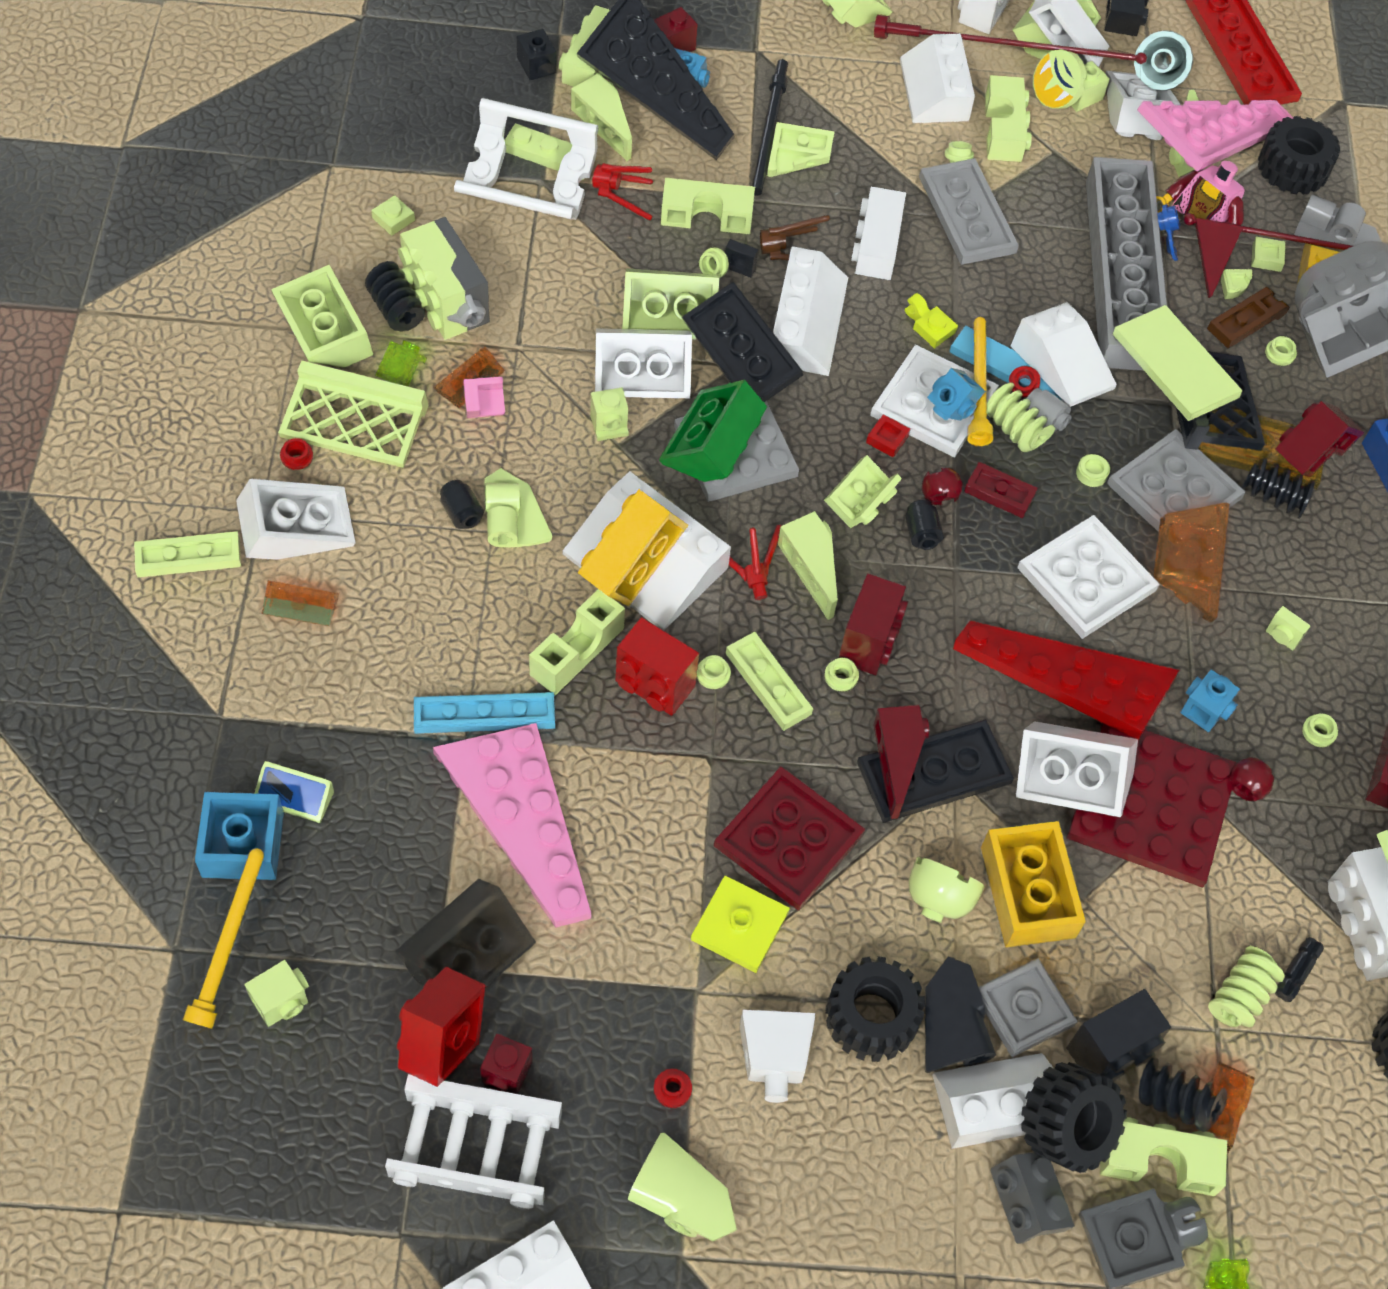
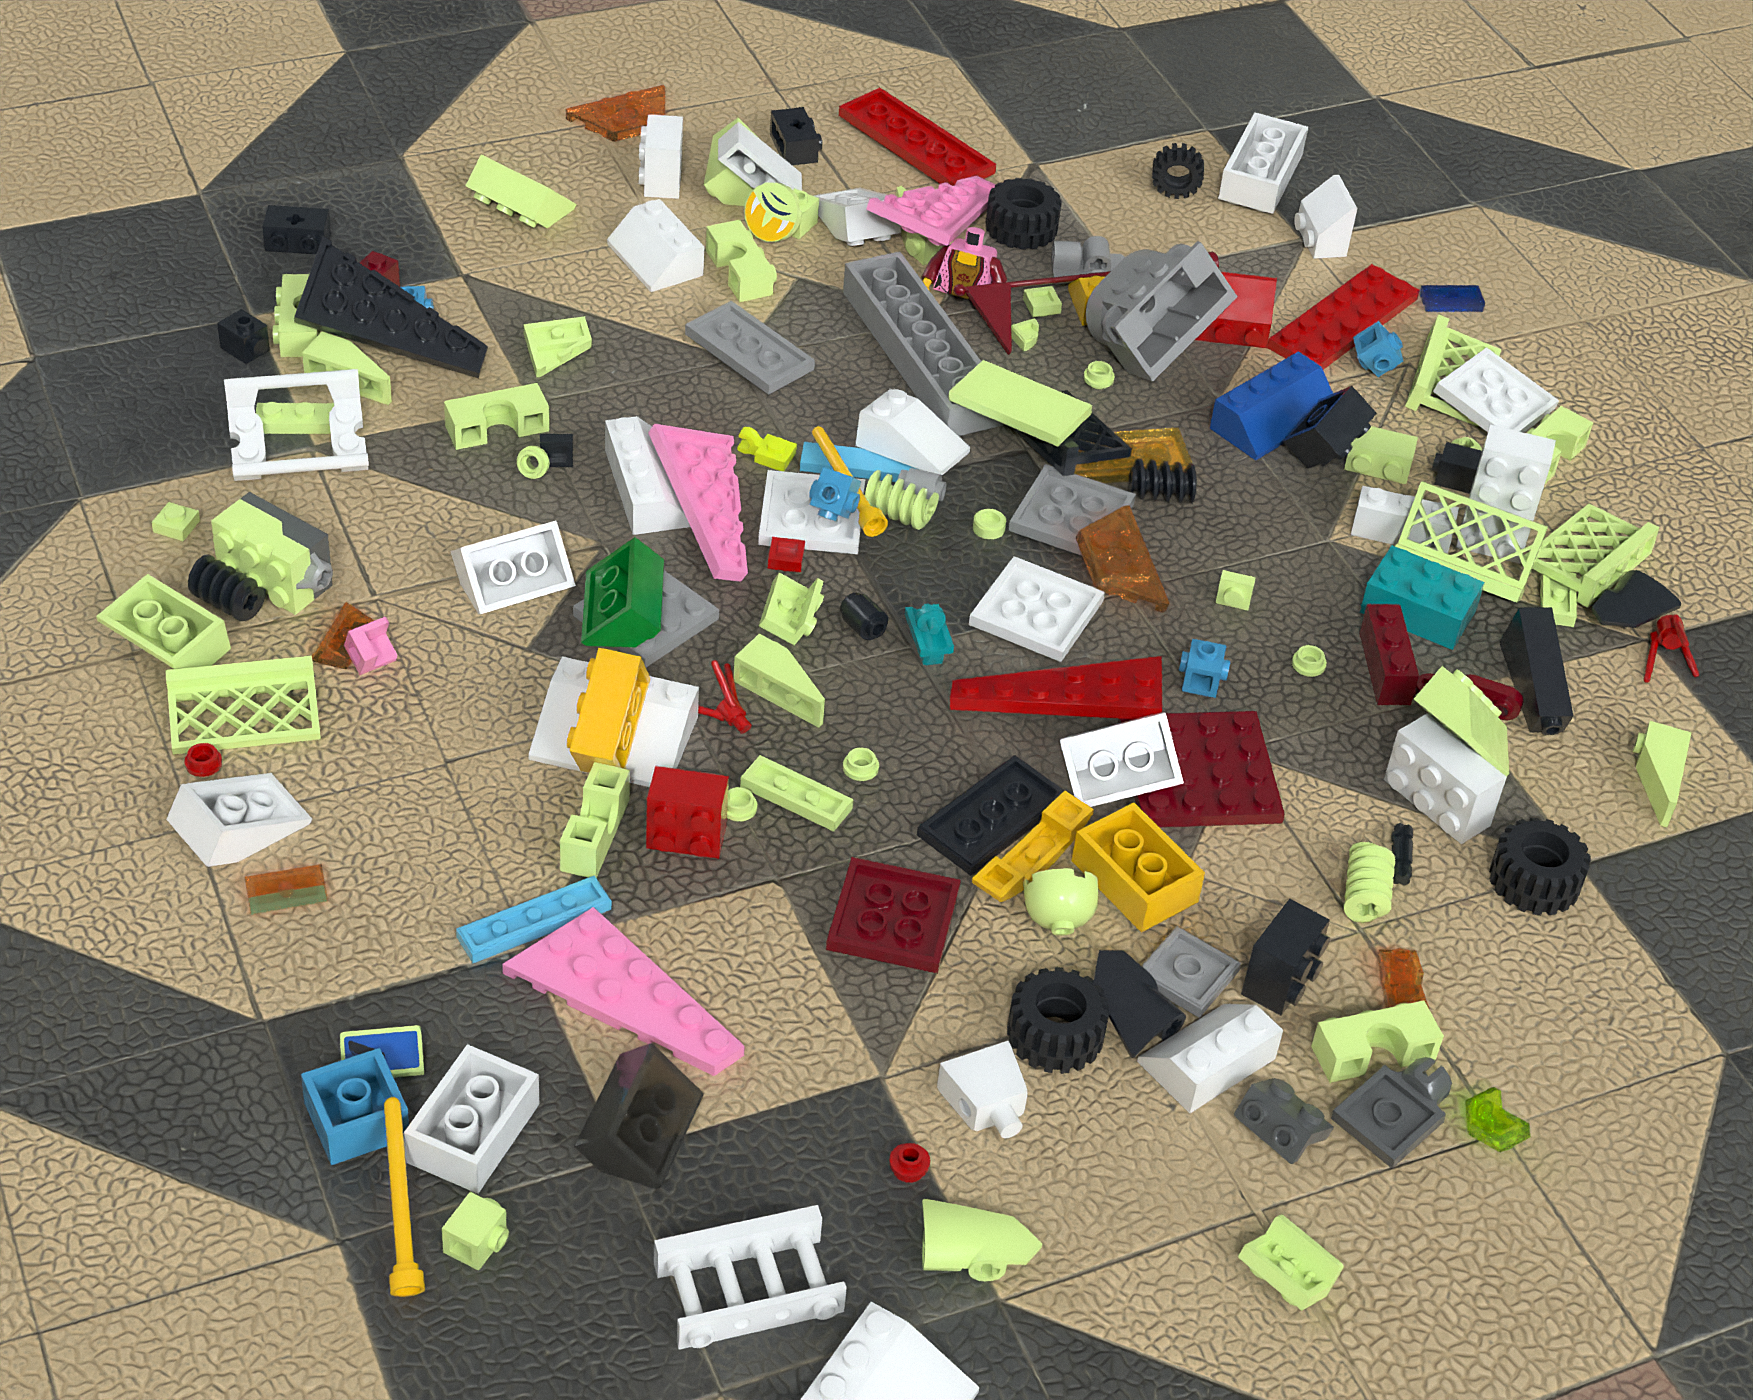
camera: 25 degrees left, 15 degrees down
(187, 554) = (141, 886): yellowish green plate -> none
(326, 888) = (471, 1118): none -> white brick
(400, 363) = (265, 641): clear neon green bracket -> none
(440, 1026) = (664, 1182): red brick -> none
(461, 504) = (403, 747): black brick -> none
(506, 1065) = (741, 1195): dark red brick -> none
(513, 512) = (459, 738): yellowish green panel -> none
(608, 177) = (382, 421): red plant -> none
(609, 414) = (507, 620): yellowish green brick -> none
(662, 297) = (509, 504): yellowish green slope -> none
(740, 924) = (889, 1004): neon yellow plate -> none
(742, 343) = (604, 513): black tile -> none
(774, 238) = (581, 421): reddish brown plant -> none
(777, 87) = (504, 297): black bar -> none
(849, 345) = (708, 492): none -> bright pink wing
(874, 624) = (871, 705): dark red brick -> none
(878, 233) = (677, 388): white brick -> none
(884, 27) = (579, 217): dark red piece -> none
(899, 743) = (953, 798): dark red slope -> none
(941, 486) = (862, 576): dark red piece -> none
(950, 826) = (1037, 850): none -> yellow slope
(959, 151) = (711, 300): yellowish green plate -> none
(972, 565) = (929, 633): none -> teal hips
(1000, 490) = (916, 565): dark red plate -> none
(1025, 372) = (887, 460): red plate -> none
(1074, 1117) = (1287, 1025): black tyre -> none
(1157, 70) = (859, 151): light aqua cone -> none
(1169, 221) = (945, 296): blue plate -> none
(1180, 1098) = (1364, 983): black piece -> none
(1247, 317) = (1054, 357): reddish brown plate -> none
(1251, 779) = (1276, 718): dark red piece -> none
(1317, 437) = (1175, 426): dark red brick -> none

